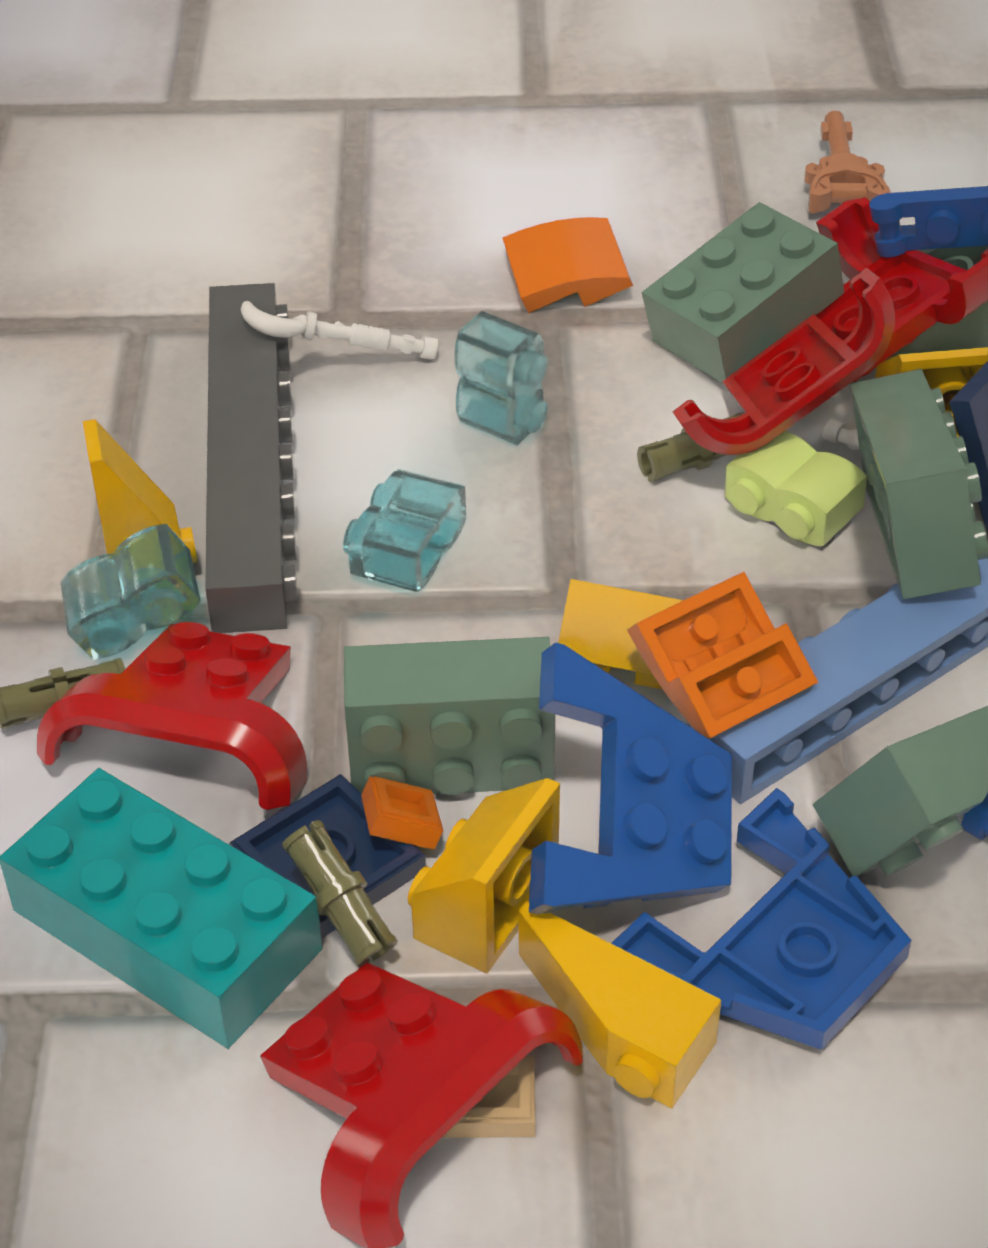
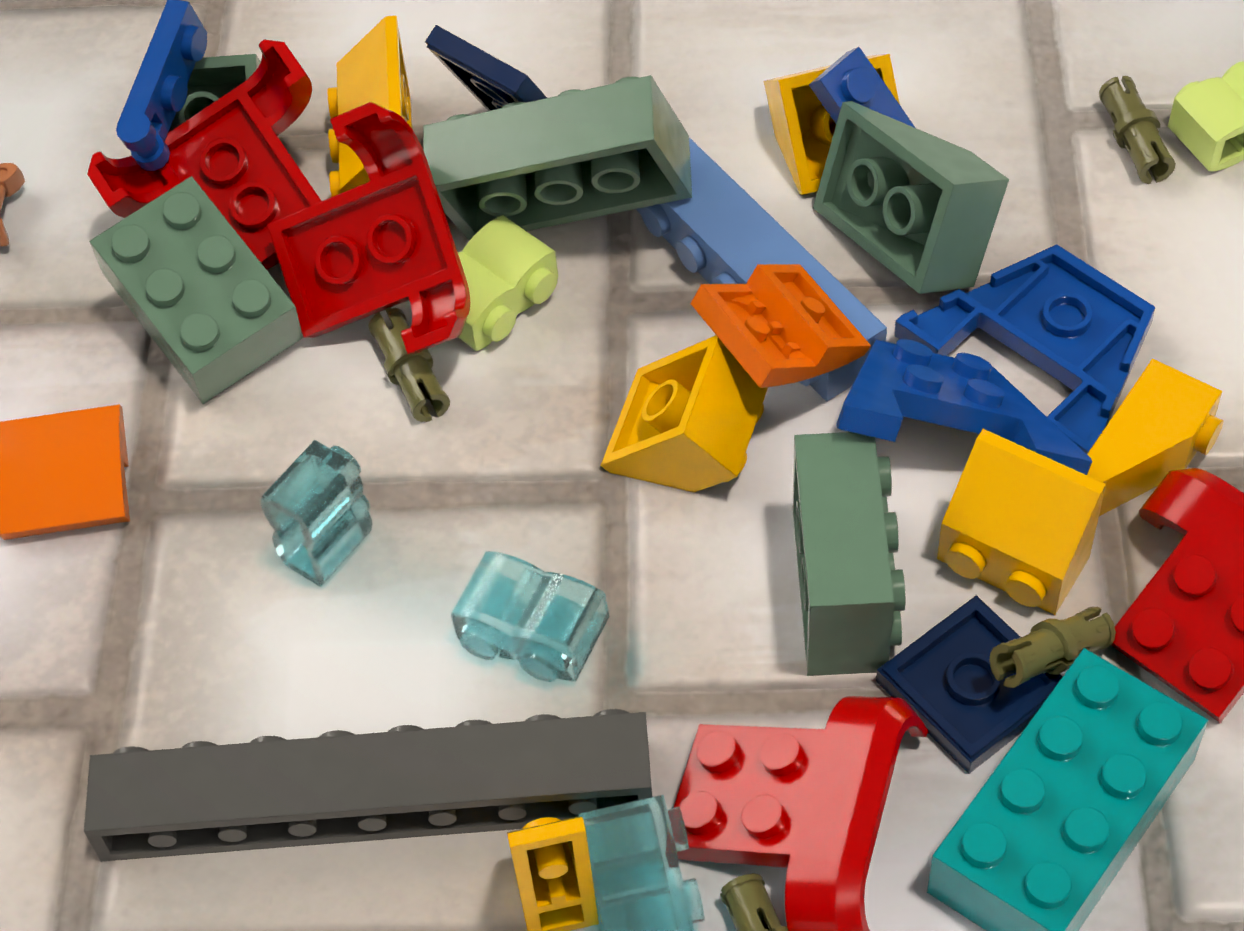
camera: 85 degrees left, 10 degrees up
(356, 334) = (184, 711): white piece -> none
(401, 812) = (935, 610): orange tile -> none

